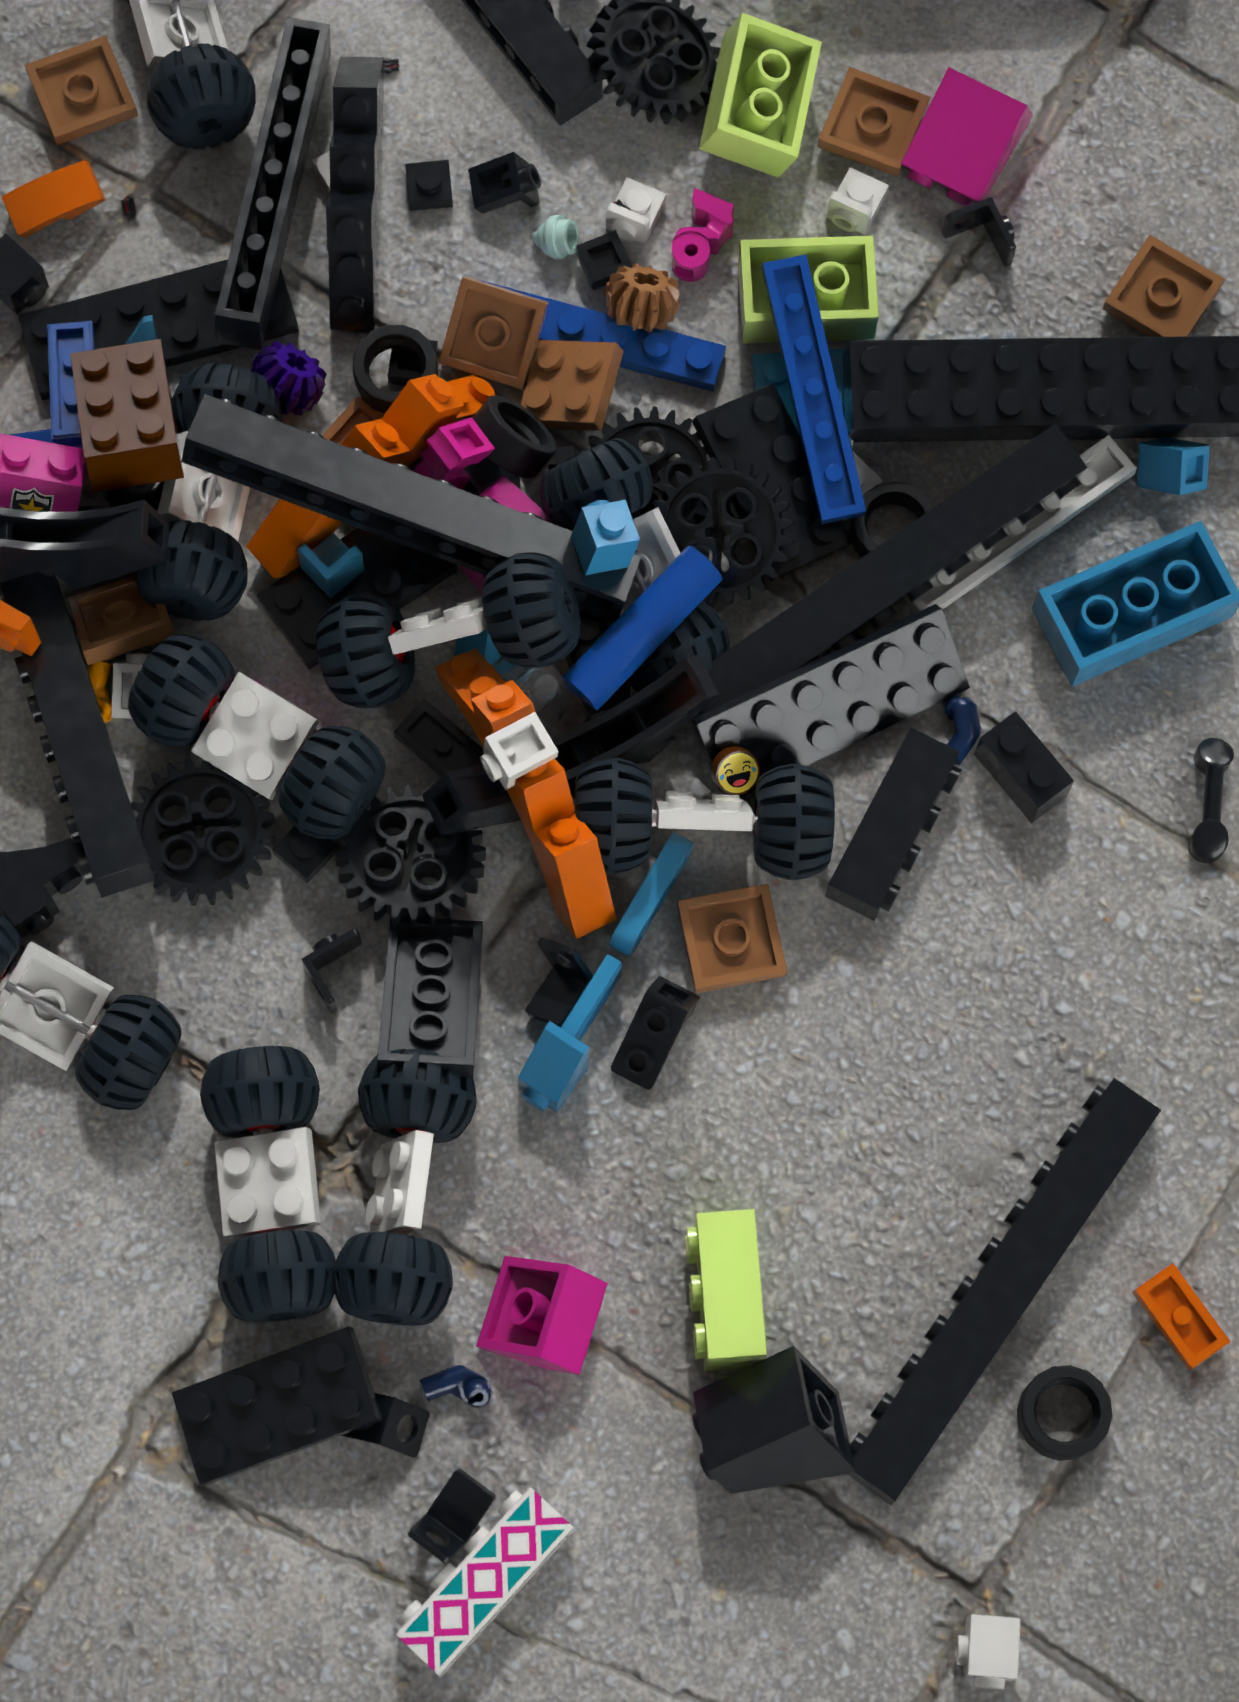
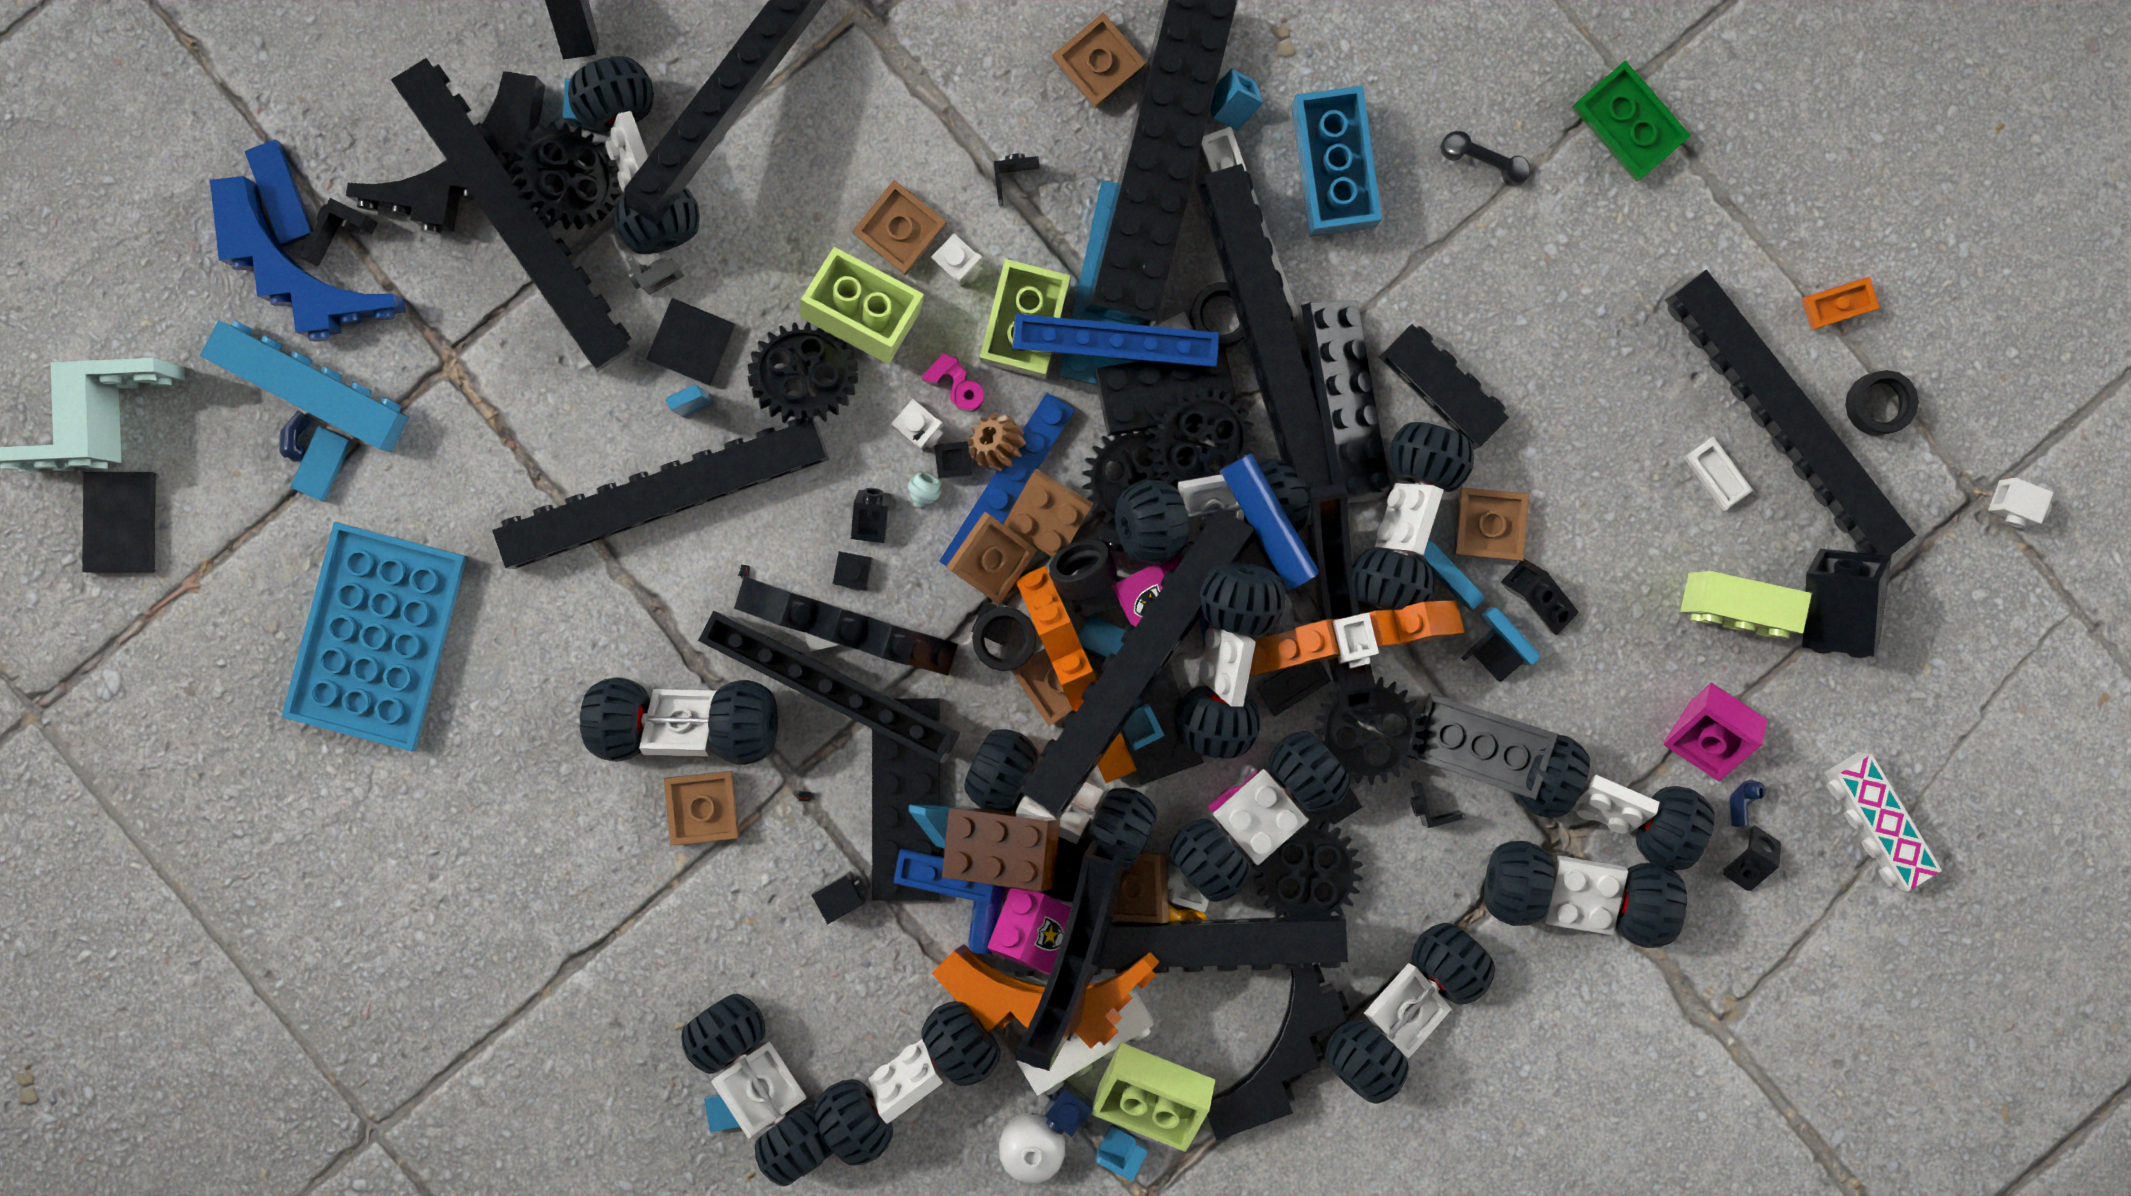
camera: 75 degrees left, 15 degrees up
(52, 197) = (786, 851): orange slope -> none
(276, 1406) = (1729, 927): black plate -> none
(293, 374) = (983, 716): dark purple gear -> none
(452, 450) = (1094, 618): dark pink leg -> none
(453, 1515) = (1831, 829): black bracket -> none
(553, 1069) = (1554, 675): dark azure slope -> none
(605, 536) = (1206, 529): dark azure brick -> none
(735, 770) = (1382, 486): tile -> none
(896, 1222) = (1718, 473): none -> white tile
(965, 138) = (936, 163): dark pink slope -> none
(966, 722) = (1384, 311): dark blue arm -> none
(1023, 767) = (1430, 281): black brick -> none

